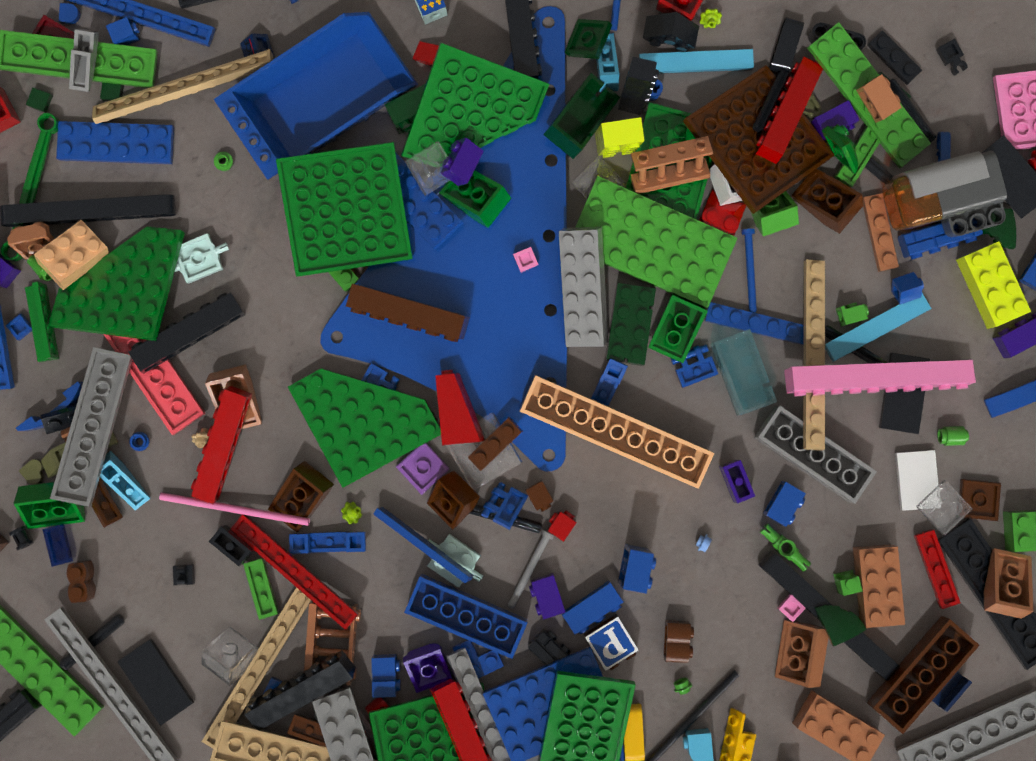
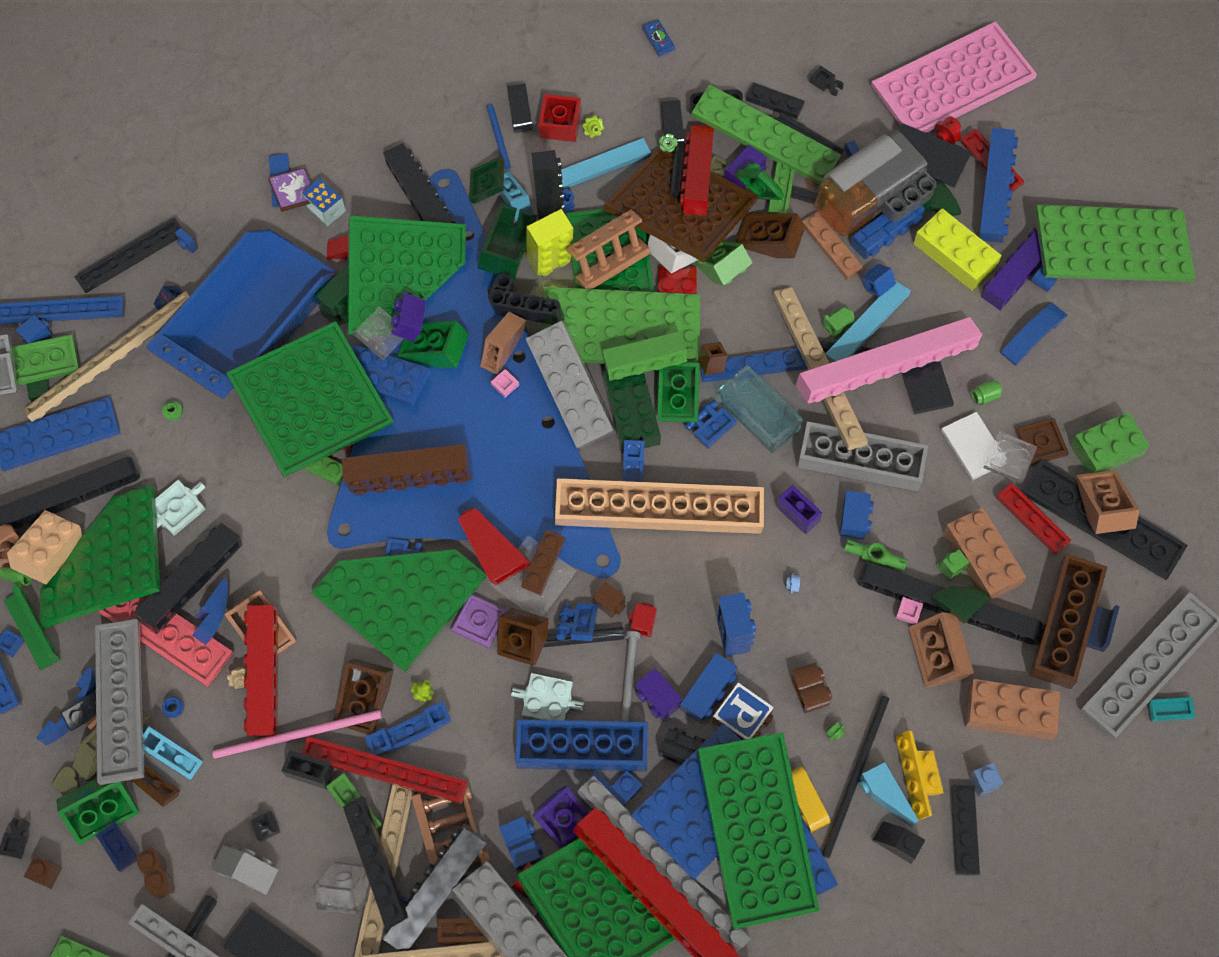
camera: 20 degrees left, 20 degrees down
(21, 538) = (74, 854): black bush -> none
(152, 609) = (242, 866): none -> light grey brick
(197, 373) = (212, 613): none -> blue slope
(259, 649) = (375, 862): none -> black plate
(423, 544) = (509, 689): blue tile -> none
(538, 219) = (502, 342): none -> nougat slope
(575, 190) = (505, 299): none -> black beam
(661, 287) = (645, 356): none -> bright green brick
(672, 30) = (565, 142): black brick -> none
(721, 310) = (712, 358): none -> reddish brown brick
(750, 268) = (708, 289): blue bar -> none
(768, 67) = (668, 137): none -> bright green plate
(879, 98) = (774, 130): nougat brick -> none

